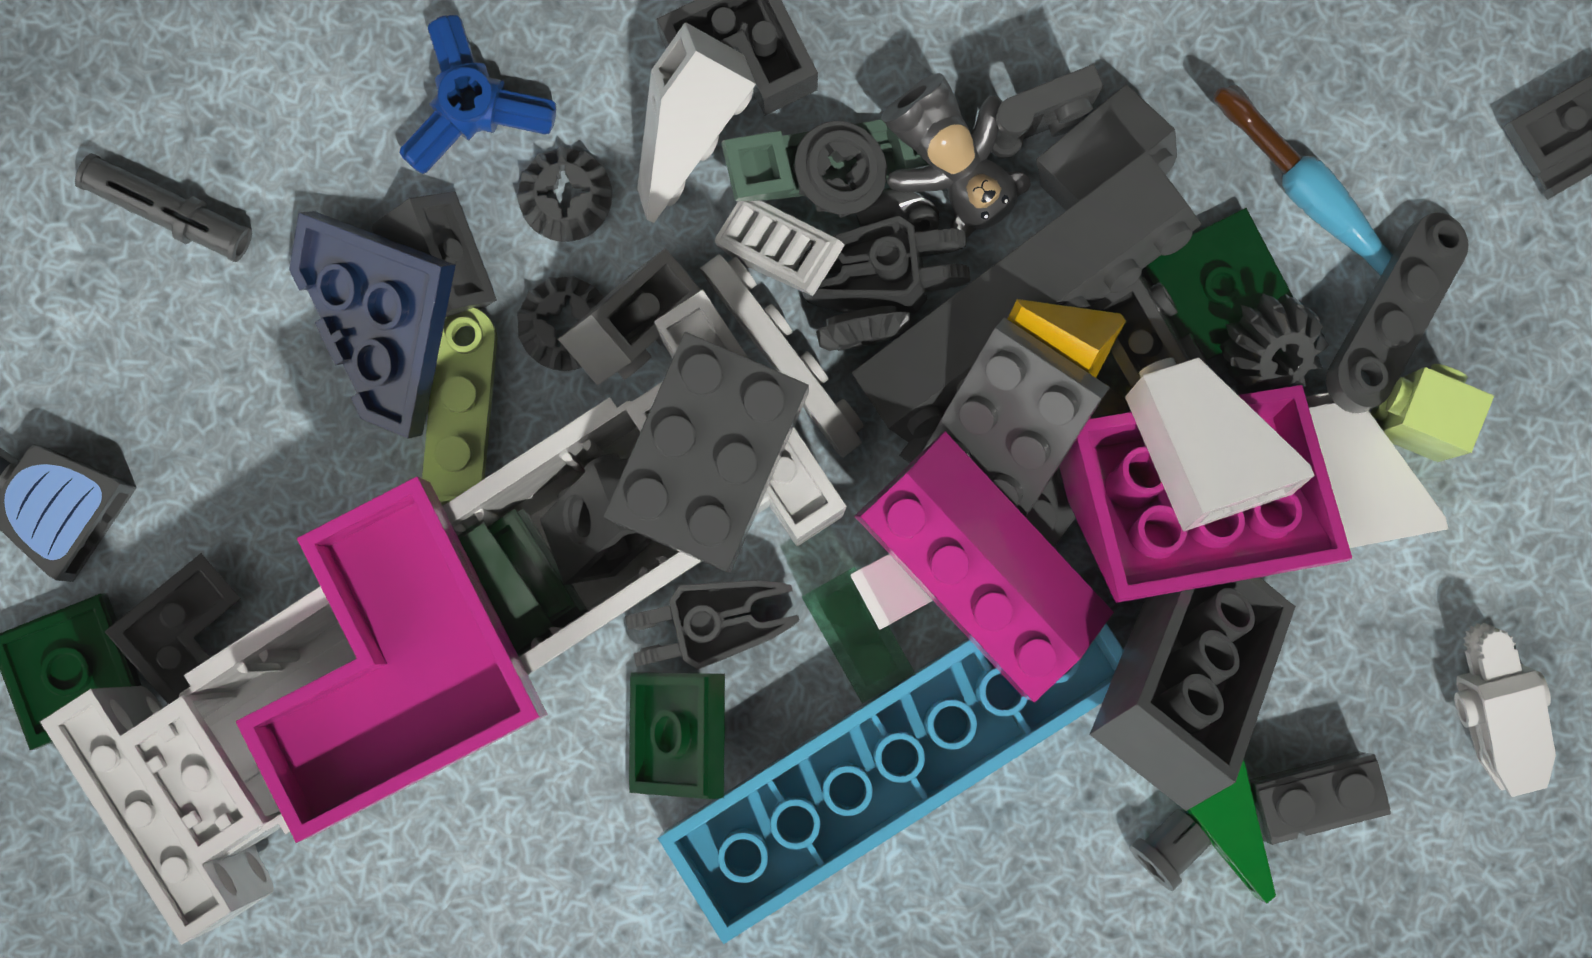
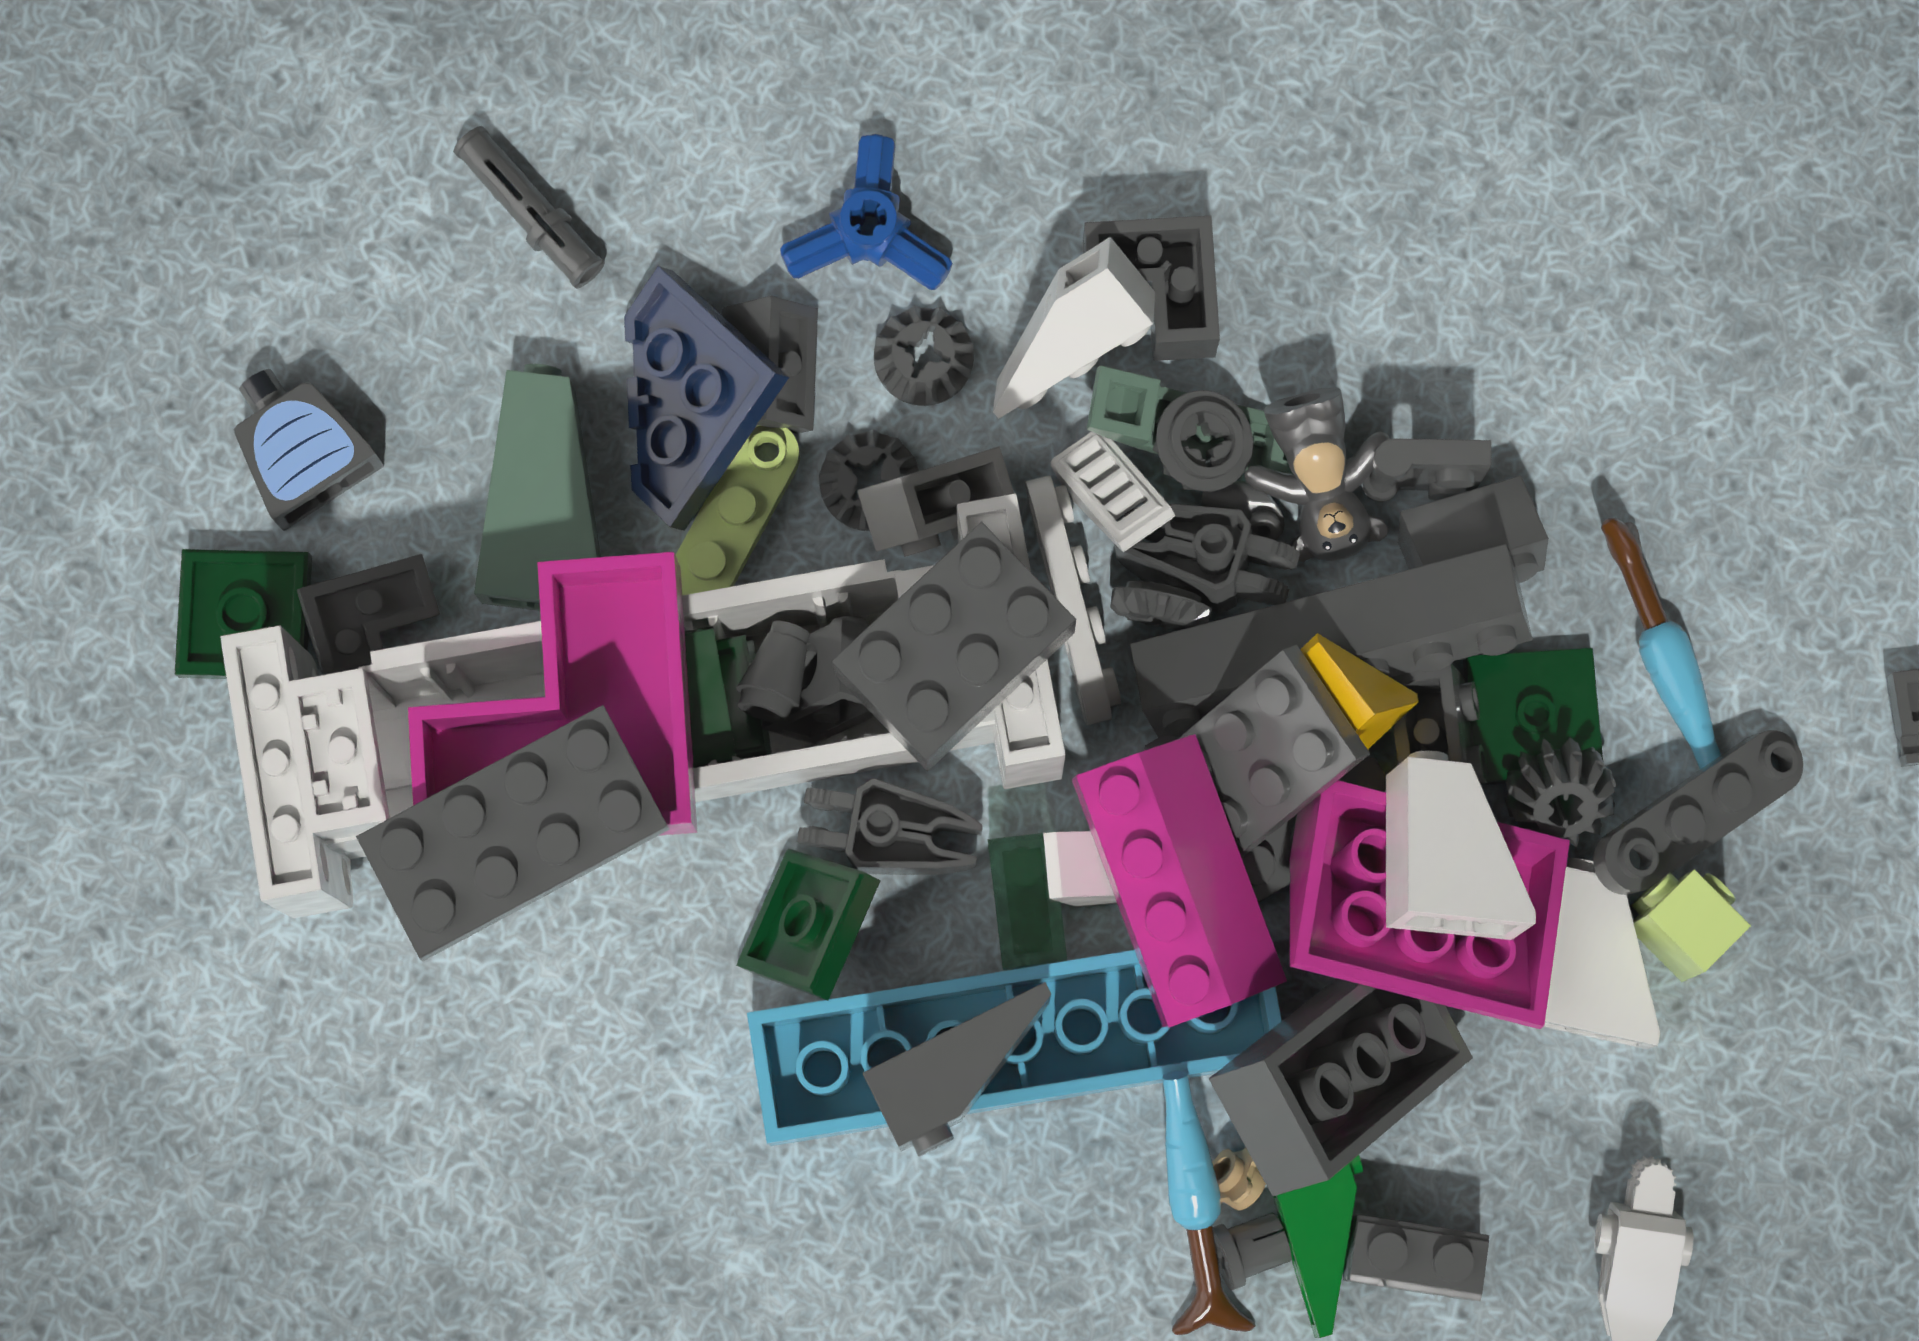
camera: 25 degrees right, 5 degrees down
(278, 452) = (537, 489): none -> sand green slope
(379, 797) = (512, 833): none -> dark grey plate
(556, 536) = (775, 675): none -> dark grey cone
(856, 831) = (944, 1077): none -> dark grey slope
(1114, 836) = (1196, 1206): none -> medium azure piece
(1132, 797) = (1238, 1178): none -> tan plate

